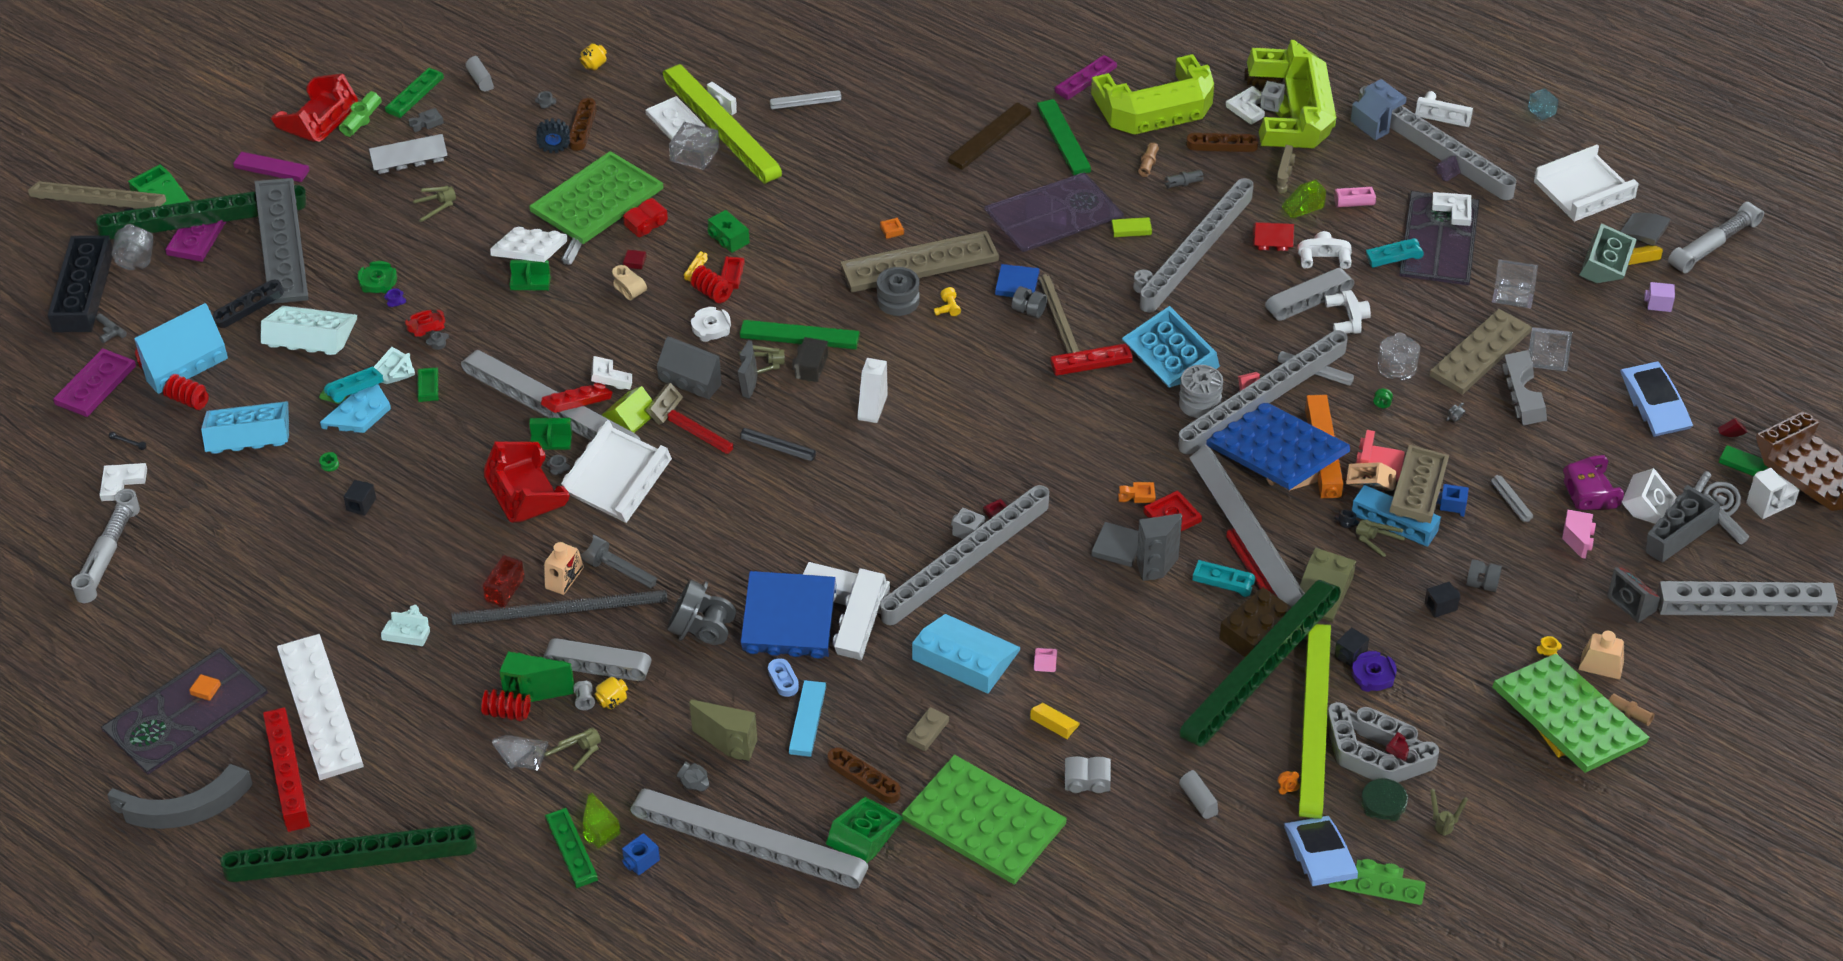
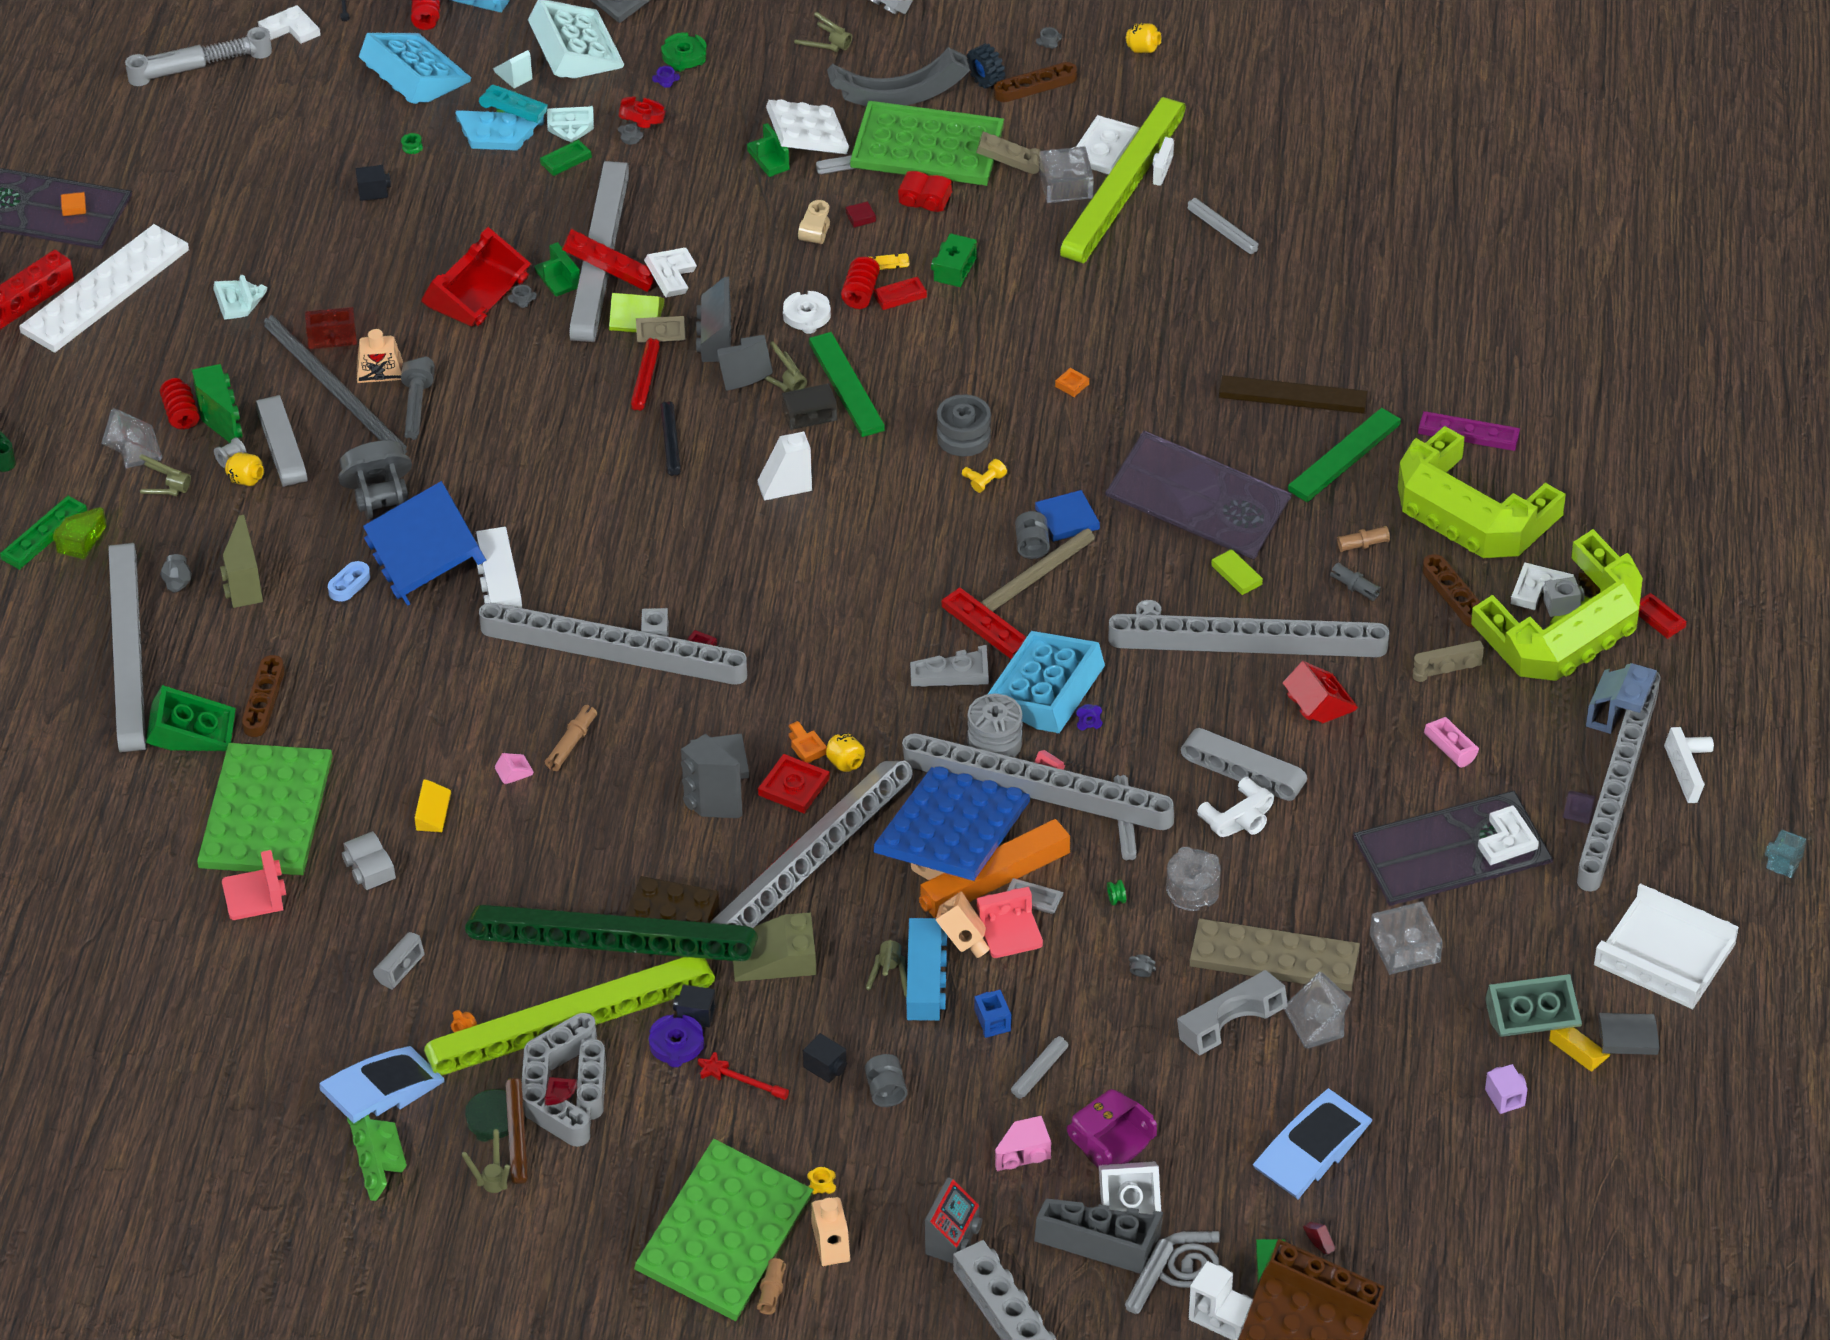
camera: 60 degrees right, 0 degrees up
(306, 371) = (516, 70): none -> light aqua slope
(534, 180) = (905, 89): none -> dark grey arch
(615, 472) = (532, 335): white panel -> none
(640, 846) = (59, 580): blue brick -> none
(647, 162) = (1009, 153): none -> dark tan plate
(807, 718) = (311, 623): medium azure tile -> none
(860, 614) = (458, 594): white brick -> none
(922, 259) = (1037, 426): dark tan plate -> none
(927, 729) = (356, 717): dark tan plate -> none
(963, 652) = (478, 699): medium azure slope -> none
(1036, 608) = (576, 730): none -> medium nougat pin
(1071, 852) = (255, 891): none -> coral bracket
(1122, 392) = (956, 670): none -> light grey wing
(1165, 475) = (845, 752): none -> yellow head
(1216, 344) = (1087, 711): none -> dark purple plate
(1224, 577) = (728, 861): teal plate -> none
(1305, 199) = (1408, 699): clear neon green slope -> none
(1324, 246) = (1337, 745): white connector -> none
(1347, 518) = (895, 930): black plate -> none
(1354, 438) = (1043, 898): none -> light grey tile
(1394, 252) = (1378, 812): teal plate -> none
(1409, 663) = (716, 1068): none -> red piece
(1413, 788) = (516, 1131): none -> reddish brown axle
(1419, 484) = (980, 966): dark tan plate -> none
(1686, 257) = (1601, 1089): light grey piece -> none

